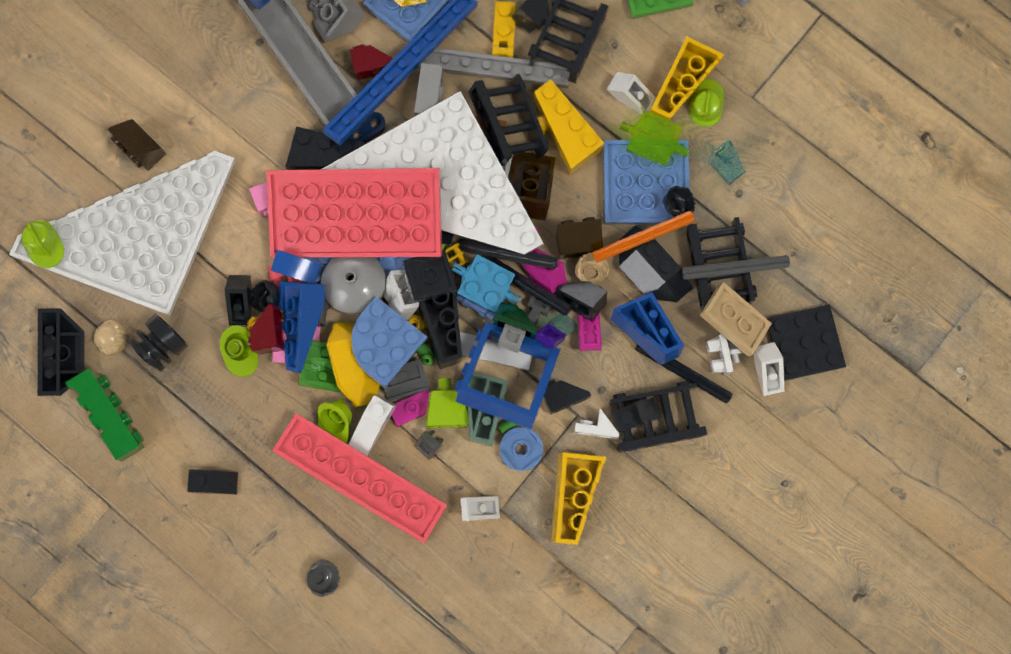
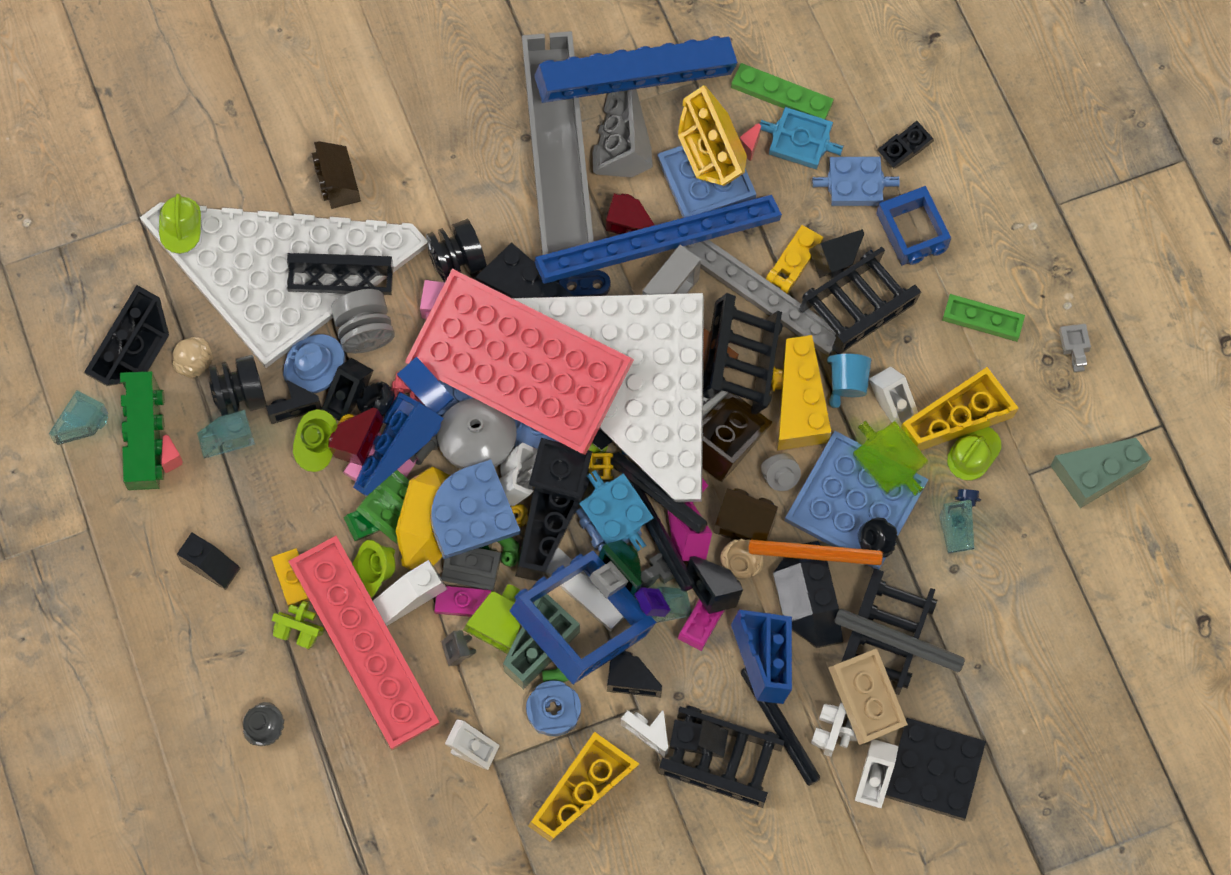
camera: 30 degrees right, 10 degrees down
(54, 430) = (79, 419): none -> clear light blue slope
(138, 419) = (170, 456): none -> coral slope
(170, 381) = (226, 434): none -> clear light blue slope
(181, 210) = (335, 265): none -> black fence
(203, 293) = (314, 362): none -> medium blue hat
(211, 329) = (300, 403): none -> black slope
(221, 243) = (362, 321): none -> light grey wheel
(260, 154) = (457, 250): none -> black wheel
(280, 464) = (289, 582): none -> yellow plate
(301, 490) = (308, 630): none -> lime hips
(307, 395) = (359, 526): none -> green plate
(583, 190) = (781, 471): none -> light grey piece
(592, 95) = (849, 376): none -> dark azure hat
(721, 137) = (966, 494): none -> dark blue plate
(799, 69) = (1100, 468): none -> sand green wedge

